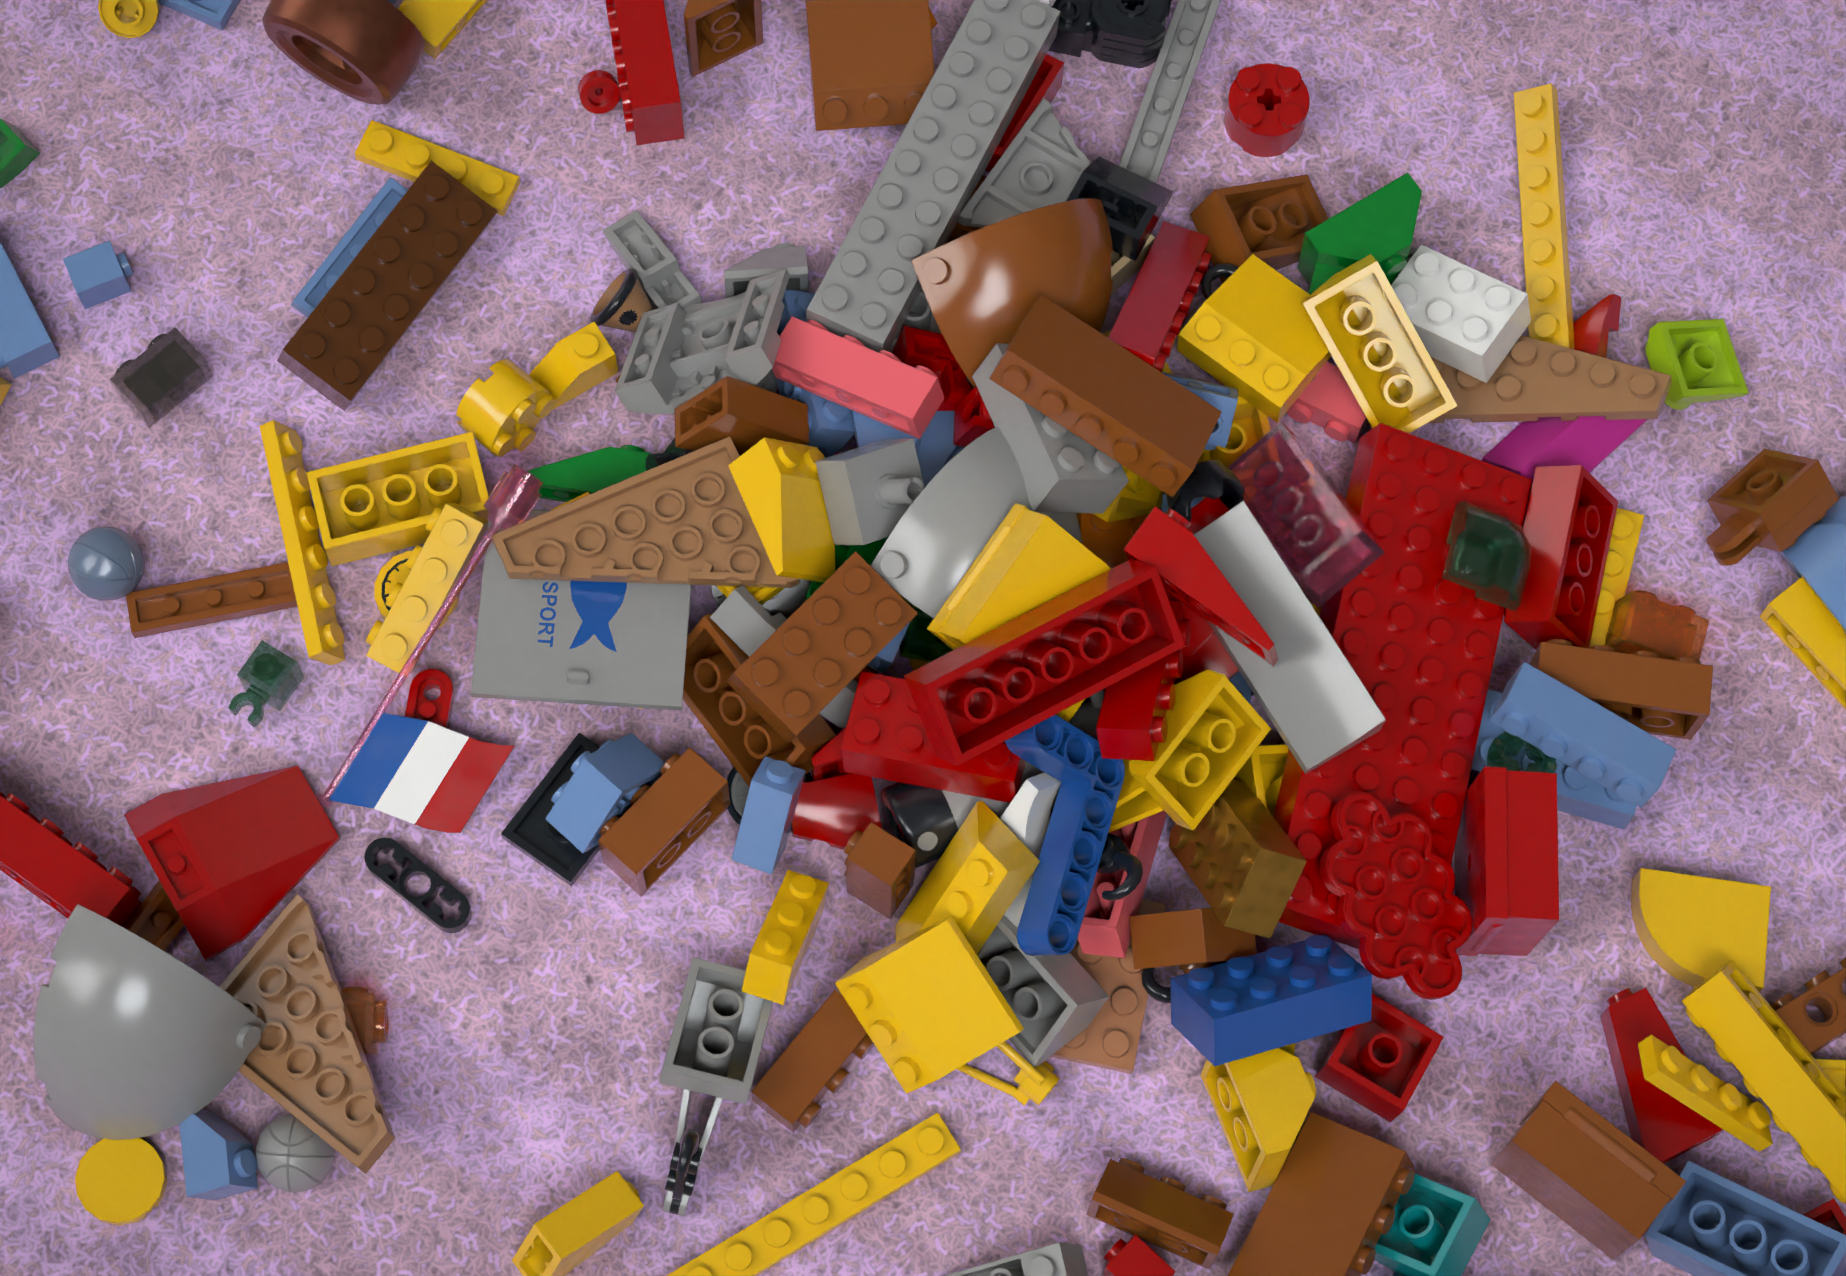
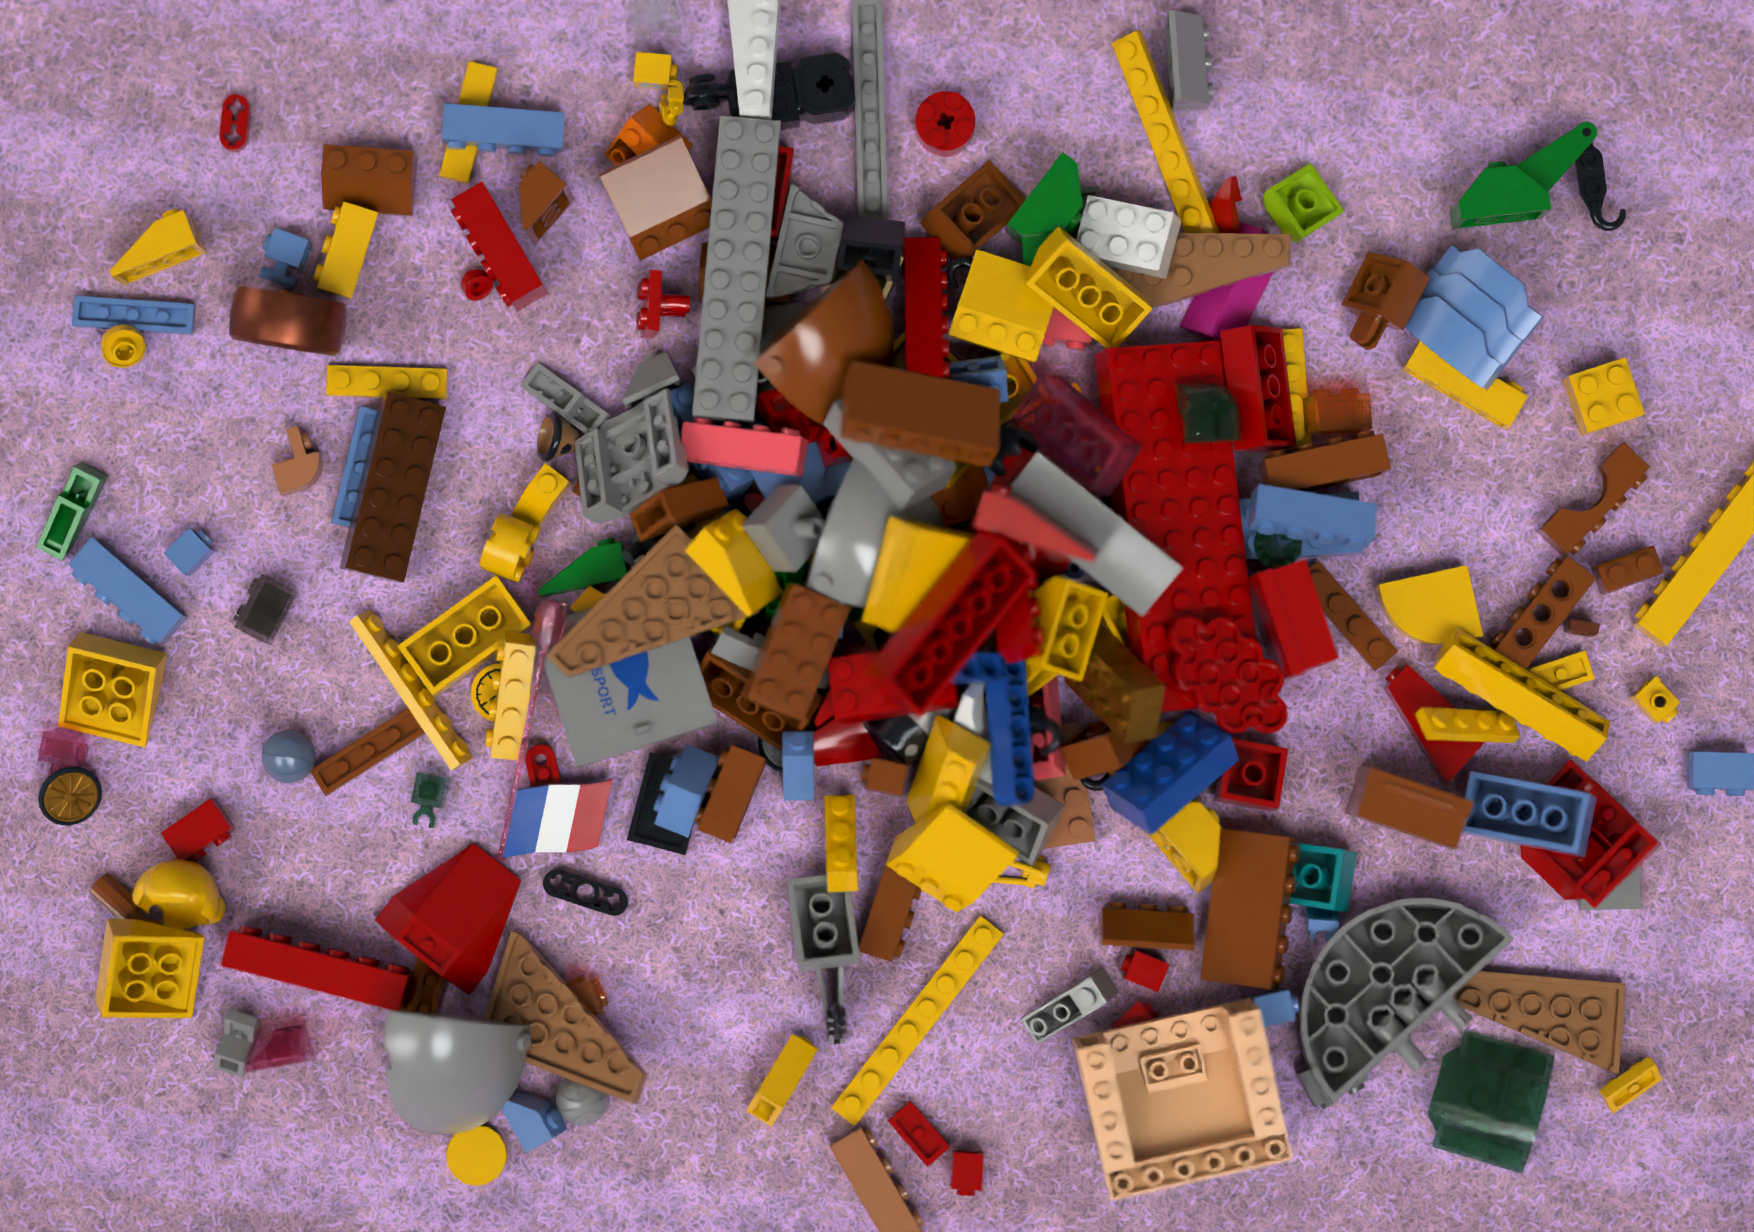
camera: 15 degrees left, 15 degrees up
(281, 229) = (302, 470): none -> nougat brick
(818, 188) = (657, 304): none -> red plate
(1588, 913) = (1350, 619): none -> dark orange plate
(1605, 142) = (1187, 61): none -> light grey slope

